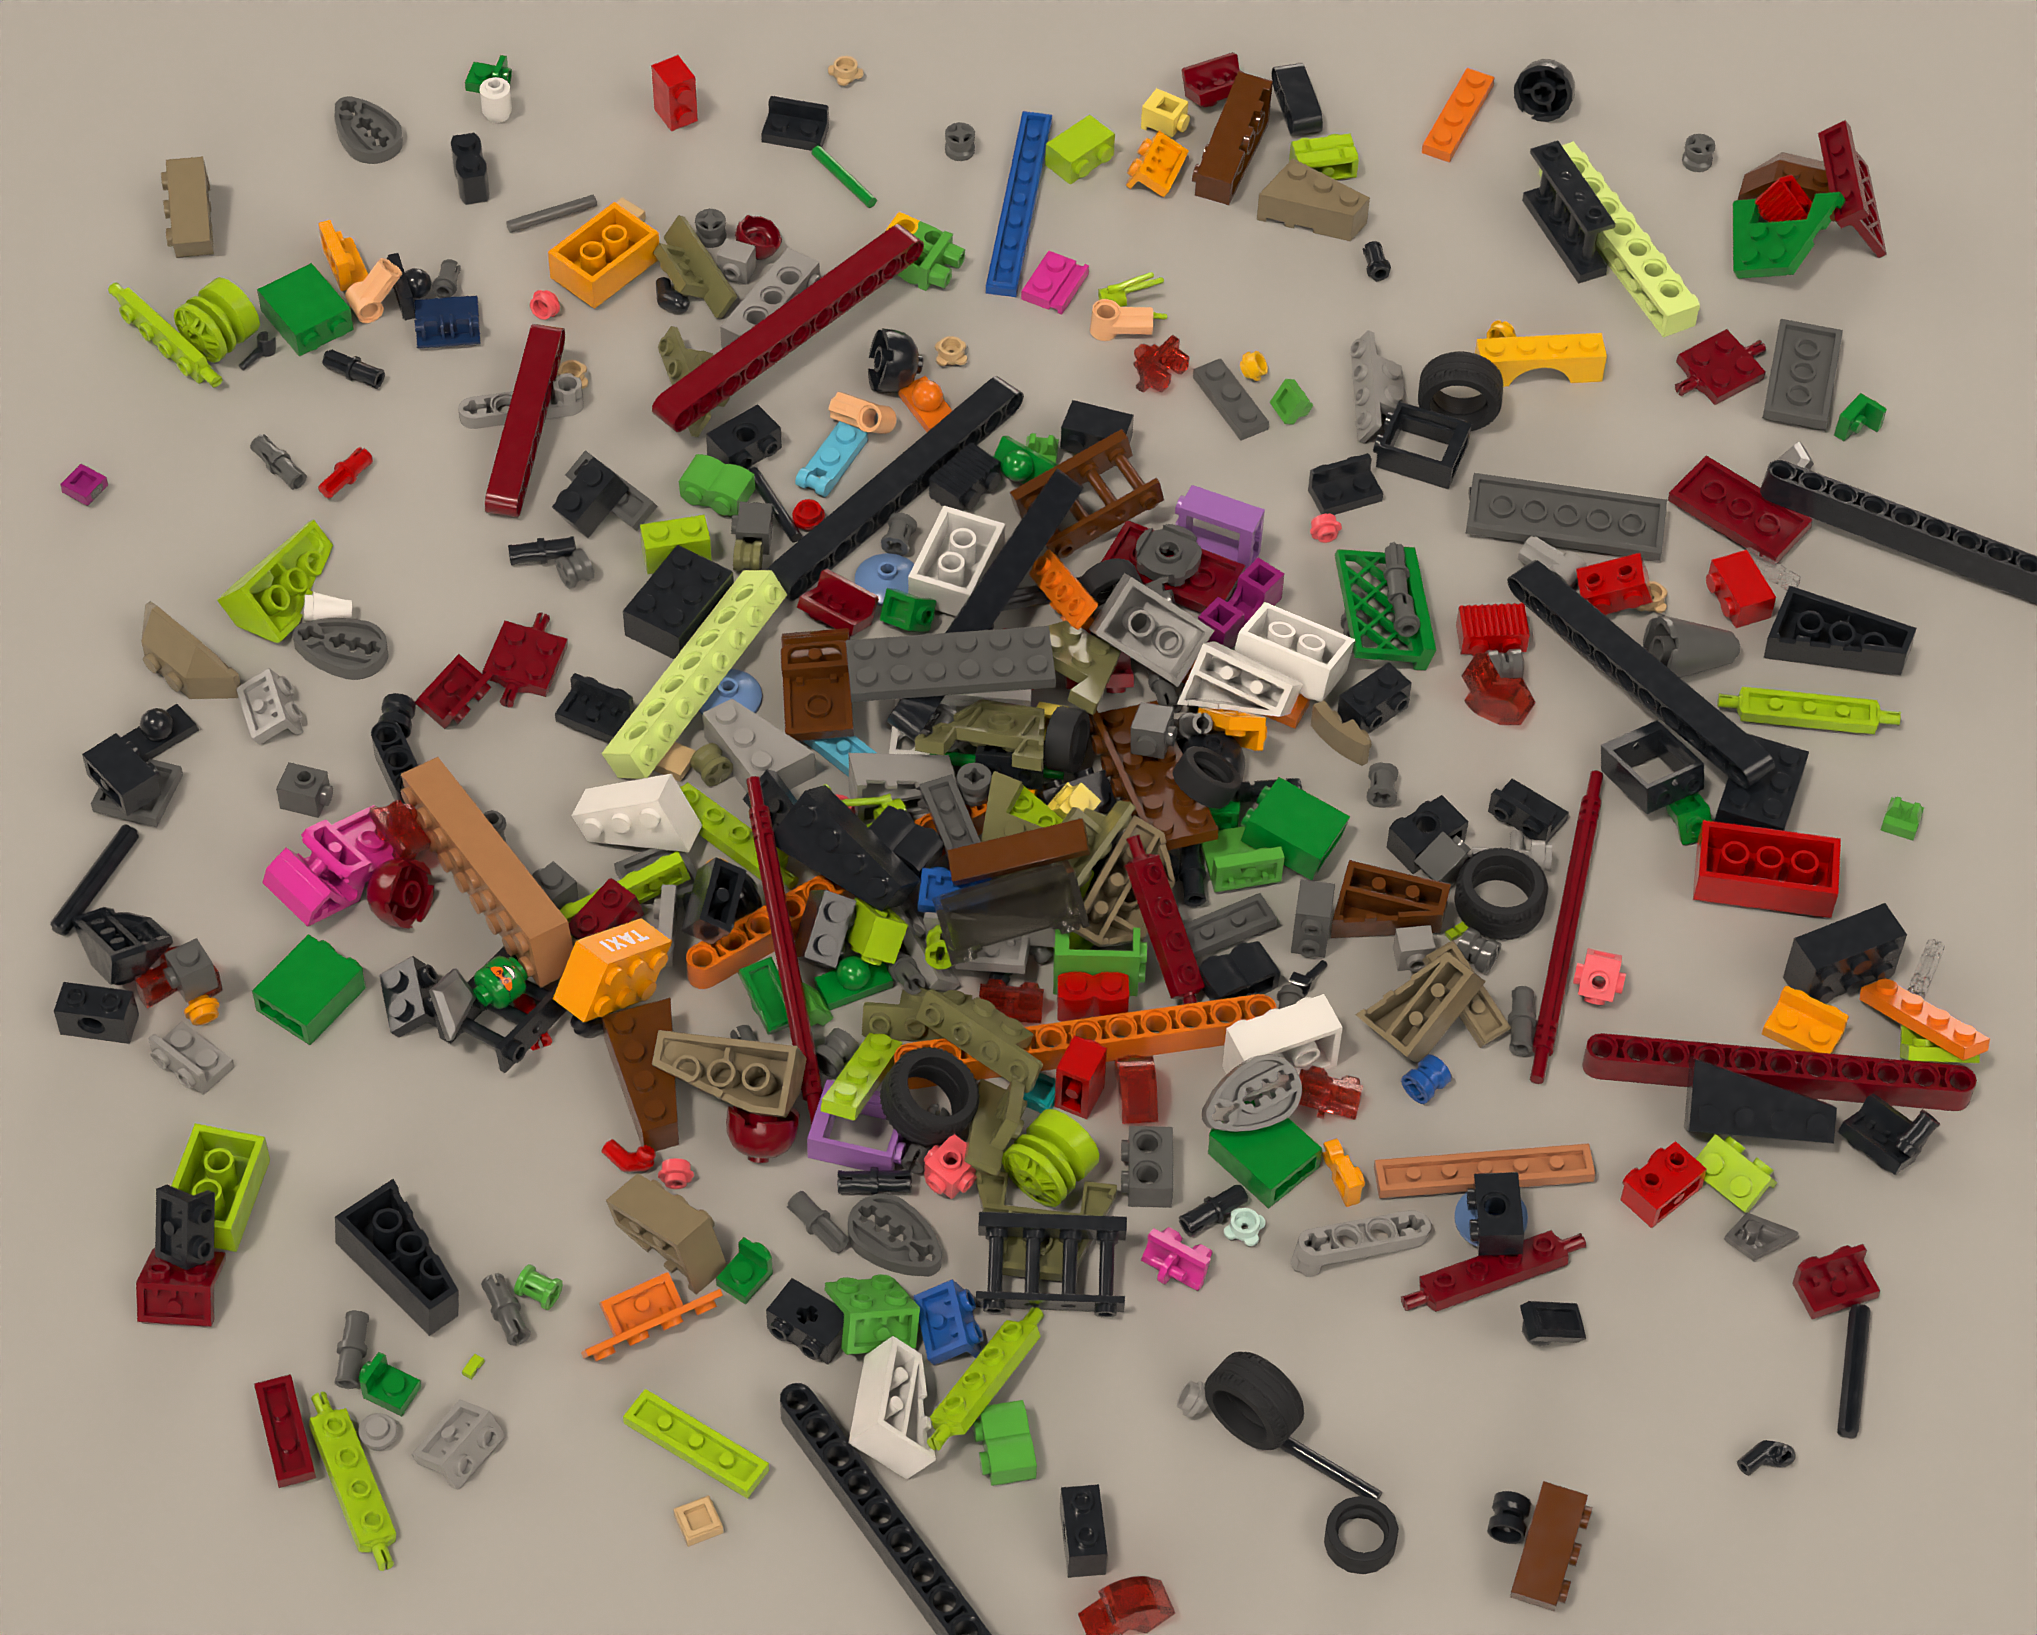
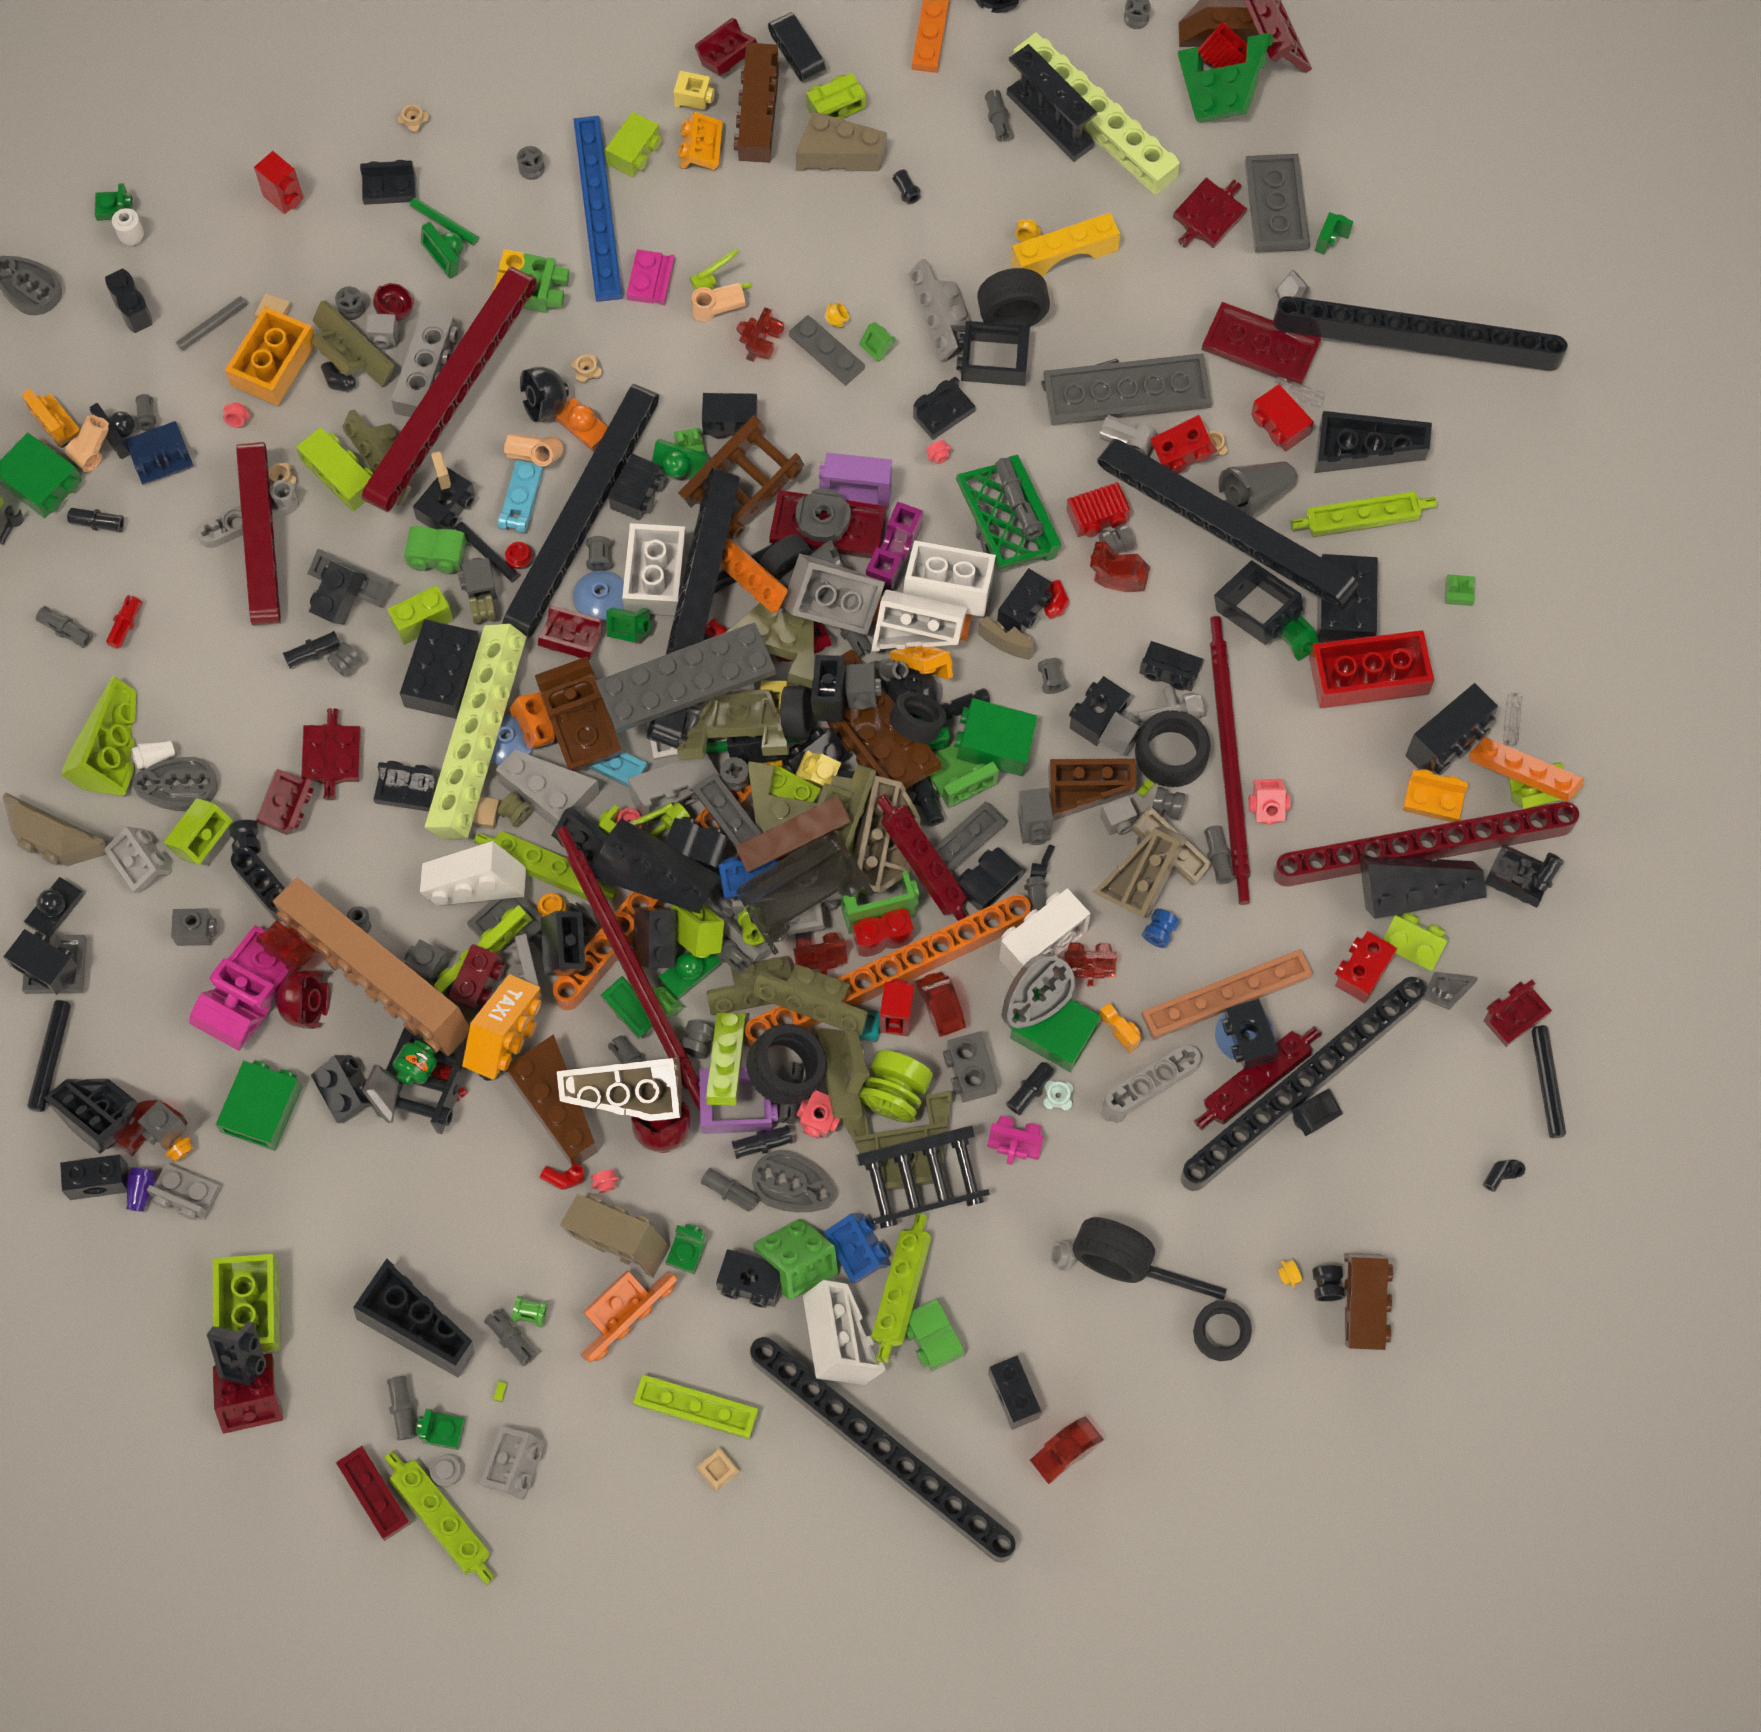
camera: 15 degrees left, 15 degrees up
(137, 1043) = (137, 1184): none -> dark purple cone
(346, 694) = (197, 831): none -> lime brick
(632, 378) = (335, 467): none -> lime brick
(749, 402) = (441, 470): none -> tan tile
(764, 679) = (533, 720): none -> orange leg
(832, 199) = (442, 248): none -> green tile
(1111, 717) = (828, 688): none -> black brick
(1416, 712) = (1059, 601): none -> red arm
(1464, 1494) = (1289, 1273): none -> yellow plate
(1505, 216) = (998, 115): none -> dark grey pin
(1556, 1276) = (1294, 1092): none -> black beam

